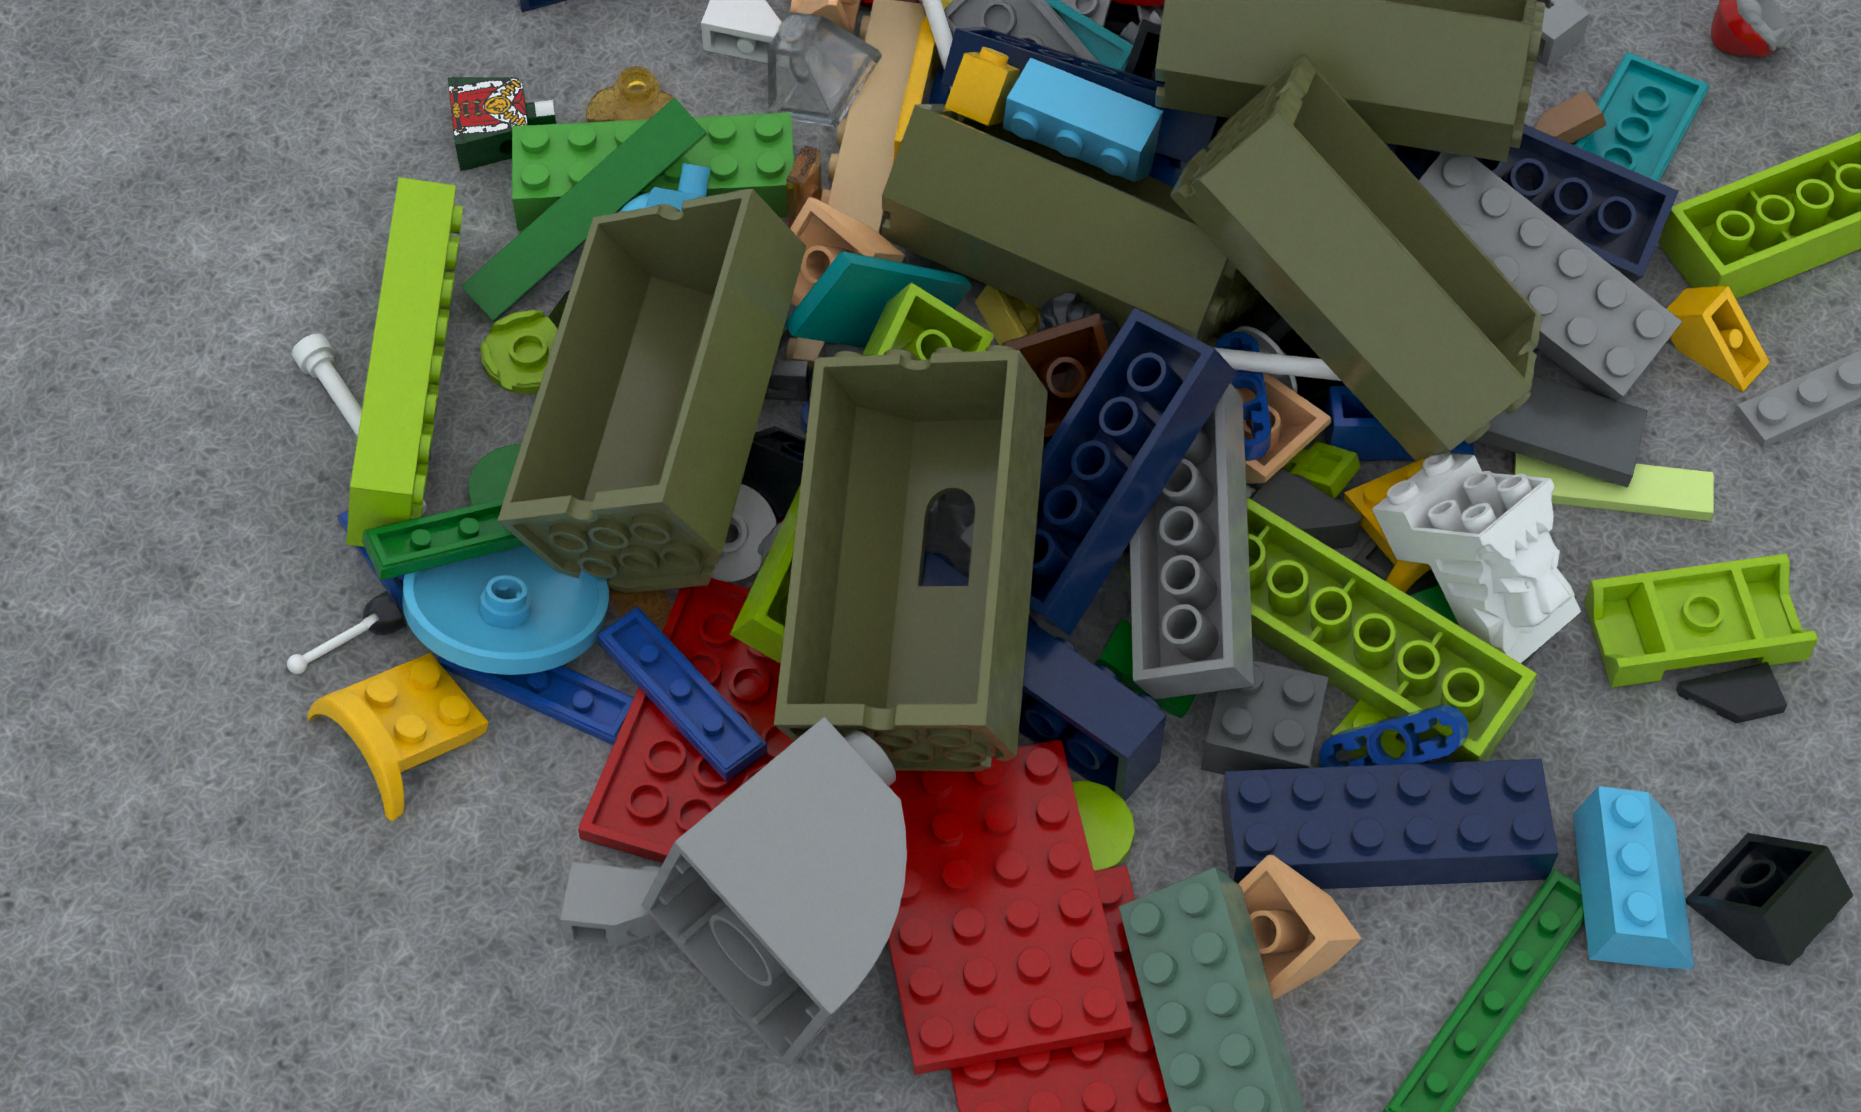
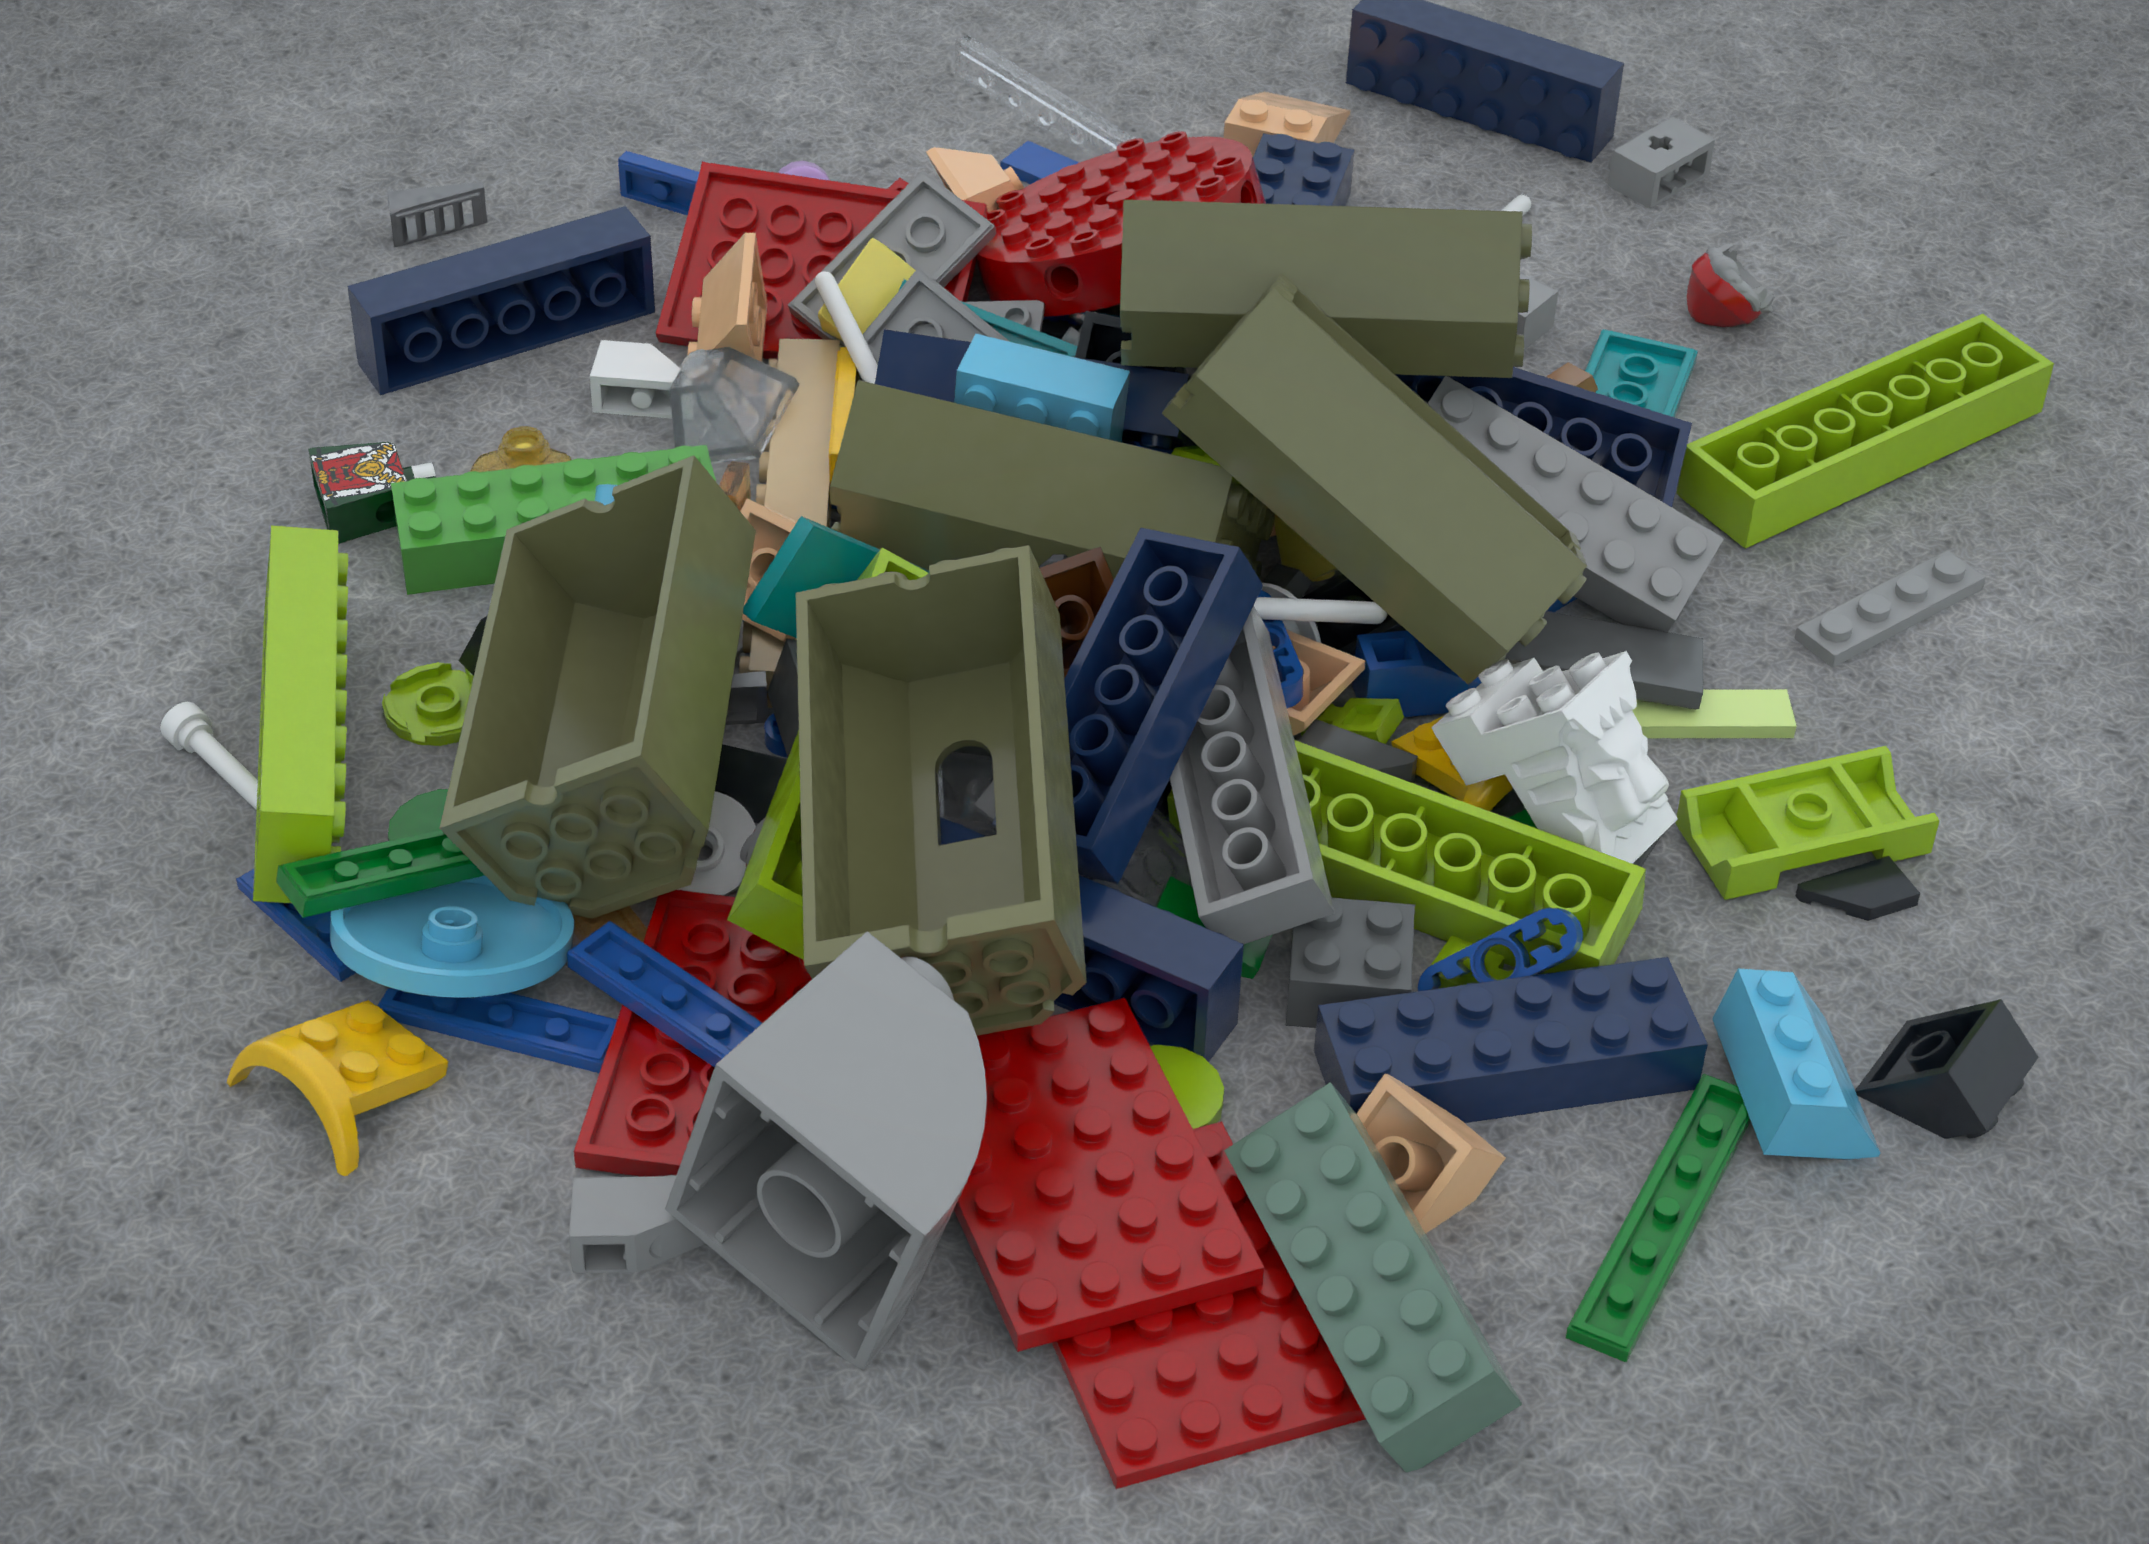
camera: 10 degrees left, 15 degrees down
(379, 617) = (302, 970): hinge -> none
(567, 222) = (472, 561): green tile -> none
(982, 86) = (927, 364): yellow slope -> none
(1717, 335) = (1762, 564): yellow slope -> none

